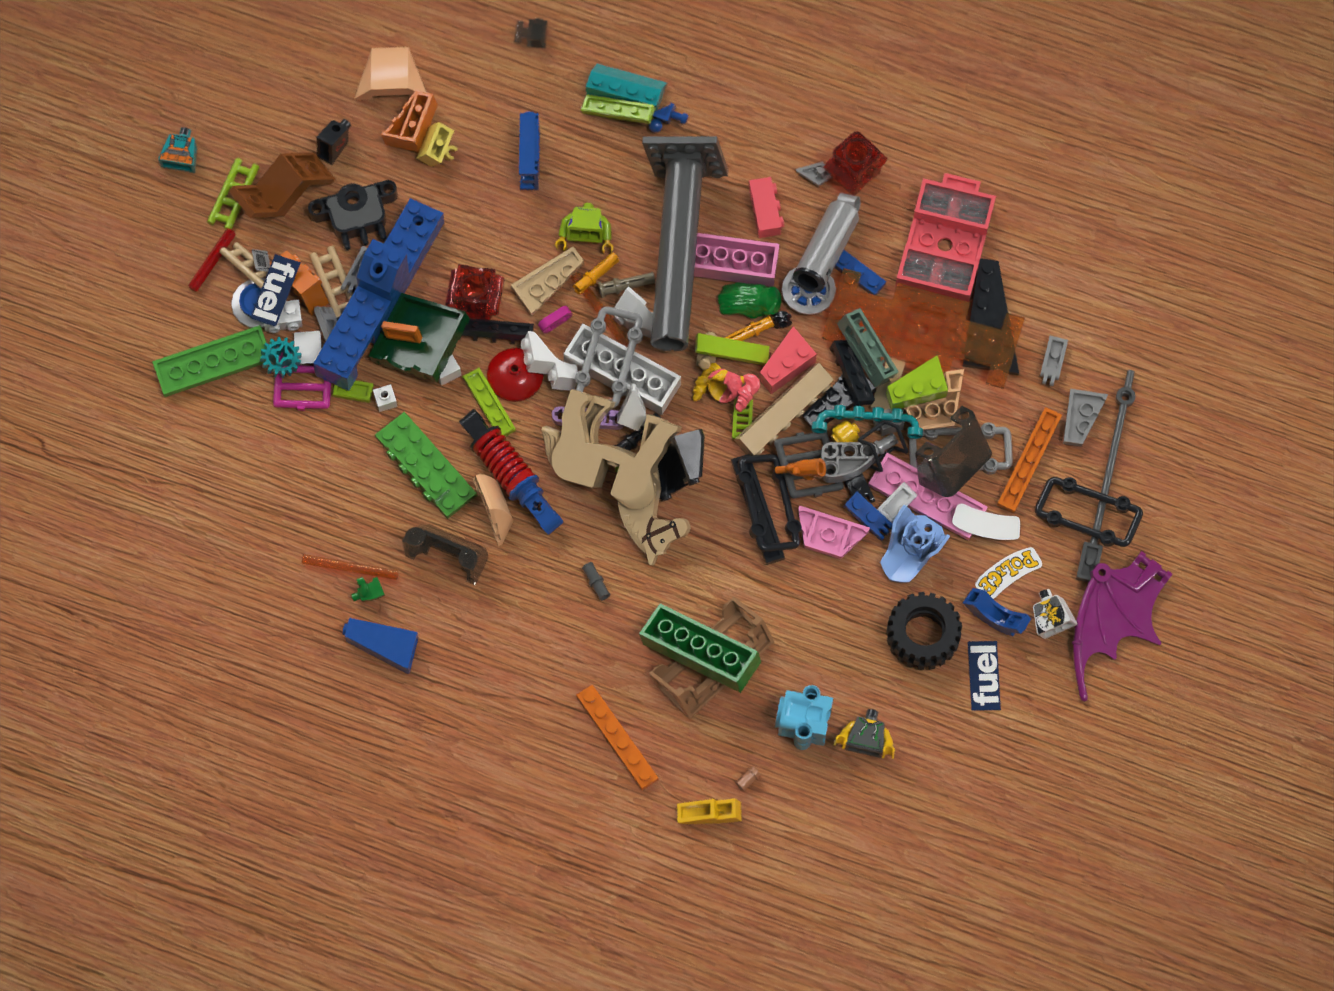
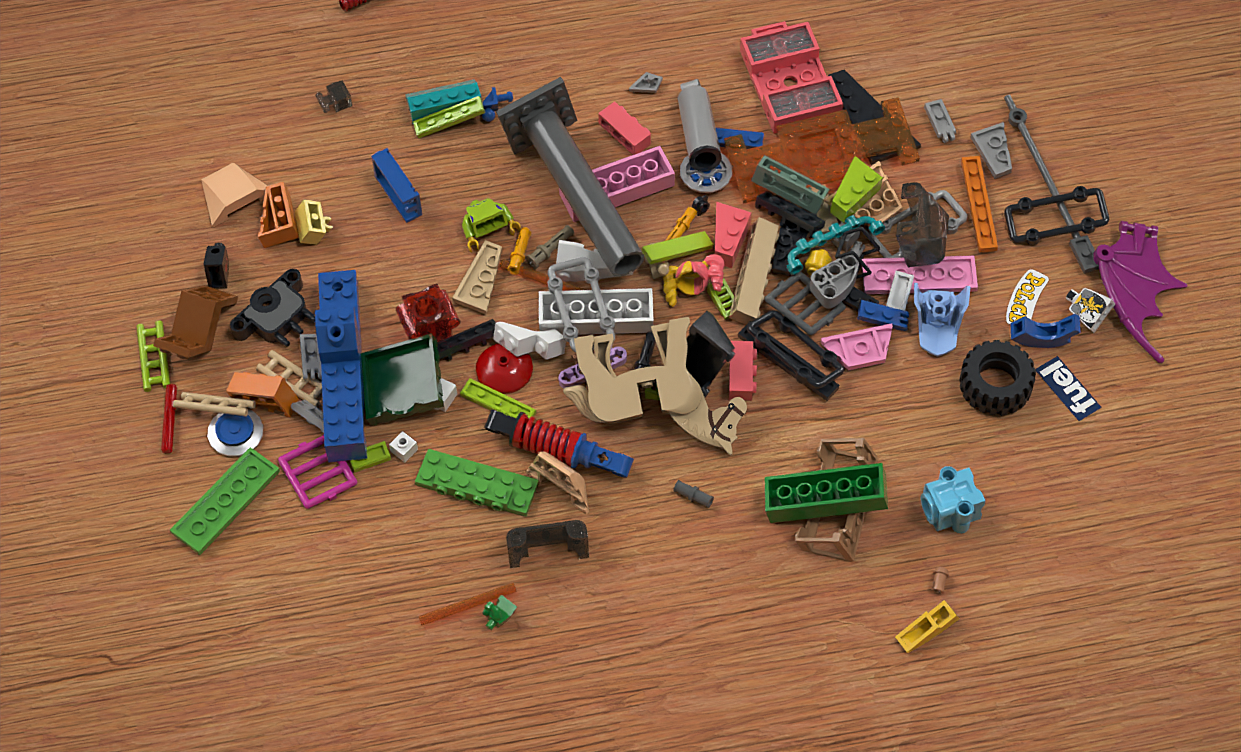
camera: 30 degrees left, 10 degrees down
(179, 152) = (82, 346): torso -> none
(261, 260) = (216, 394): sticker -> none
(271, 354) = (288, 461): teal gear -> none
(275, 290) = (248, 407): sticker -> none
(289, 318) = (265, 428): white bracket -> none
(309, 345) = (305, 442): white sticker -> none
(384, 642) = (542, 649): blue slope -> none
(401, 332) = (385, 381): orange tile -> none
(555, 319) = (509, 305): dark pink beam -> none
(617, 737) = (803, 612): orange plate -> none
(633, 411) = (629, 335): white slope -> none
(711, 495) = (742, 371): none -> coral brick
(749, 300) = (662, 204): green hair -> none
(804, 468) = (808, 303): orange piece -> none
(855, 174) = (676, 54): clear red piece -> none
(867, 736) = (1015, 488): torso -> none
(986, 524) = (982, 269): white sticker -> none

